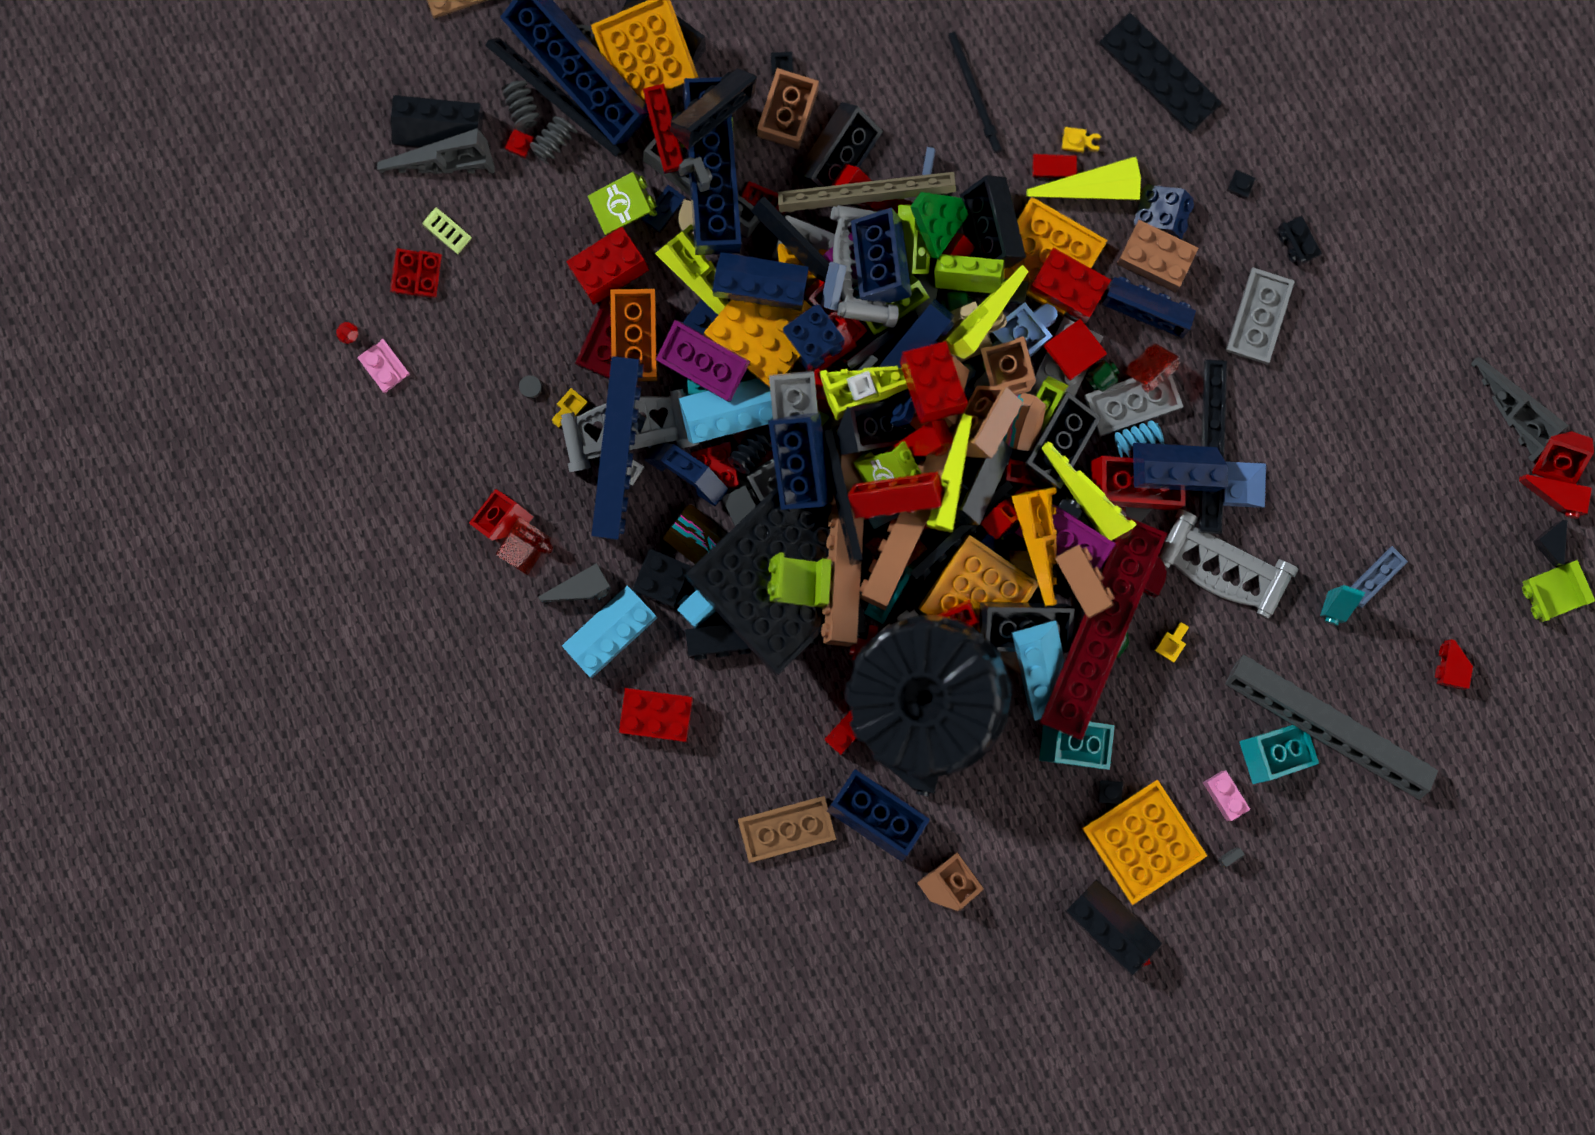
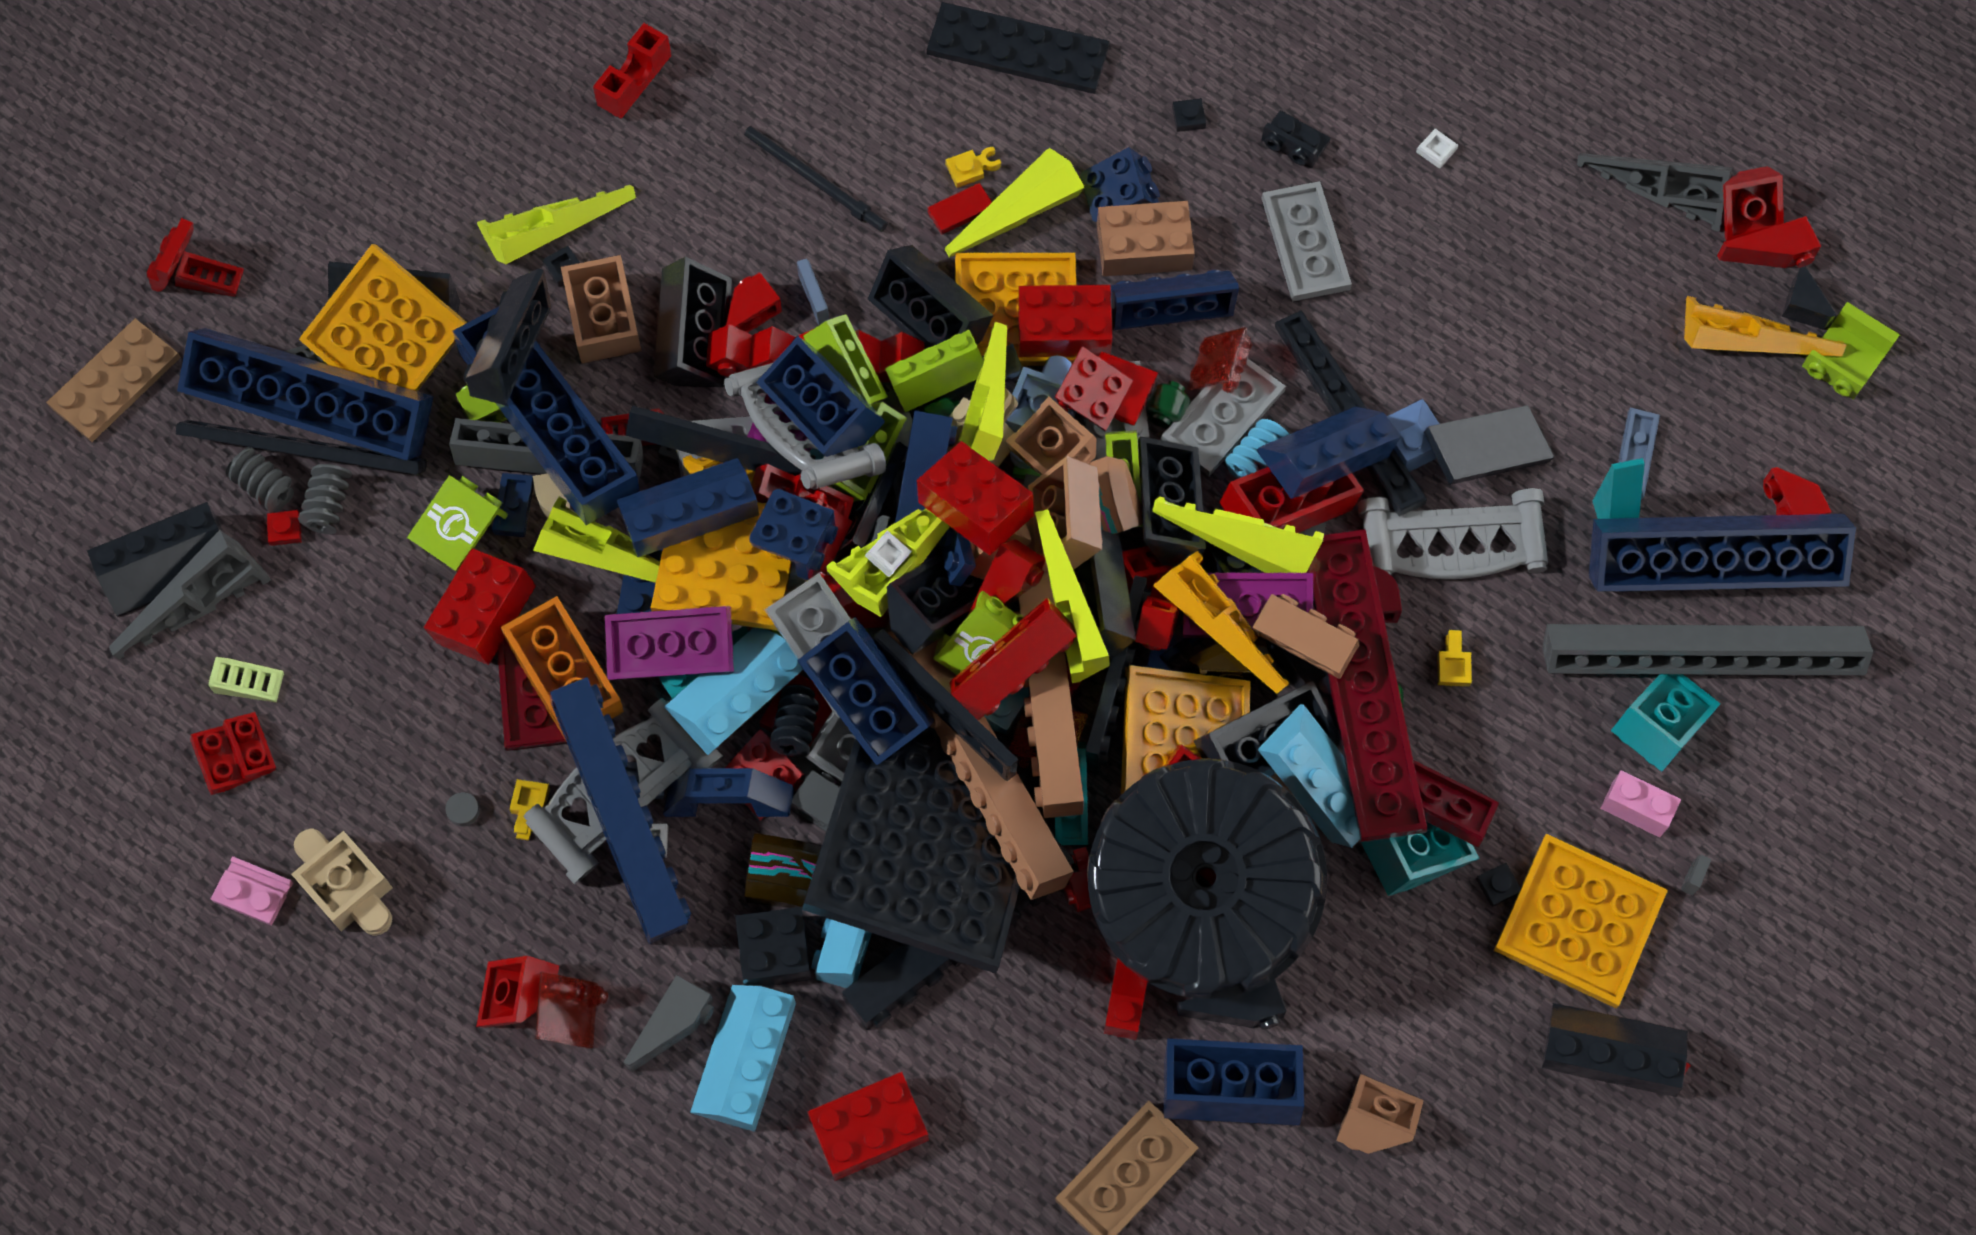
camera: 30 degrees left, 15 degrees down
(347, 332) = (180, 876): red plate -> none
(437, 392) = (342, 881): none -> tan brick
(660, 119) = (457, 403): red tile -> none
(701, 174) = (533, 417): dark grey bracket -> none
(787, 26) = (529, 230): none -> neon yellow wedge
(799, 581) = (955, 838): lime panel -> none
(833, 285) = (781, 458): sand blue tile -> none
(866, 192) = (762, 338): dark tan plate -> none
(883, 158) = (753, 303): none -> red slope
(938, 219) = (863, 325): green plate -> none
(1057, 344) = (1093, 389): none -> red hinge
(1072, 508) = (1232, 563): black plate -> none
(1112, 729) = (1454, 805): none -> dark red tile
(1284, 519) = (1488, 444): none -> tile
(1381, 674) = (1721, 552): none -> dark blue brick
(1387, 300) = (1437, 148): none -> white tile
(1493, 535) = (1735, 331): none -> light orange wedge

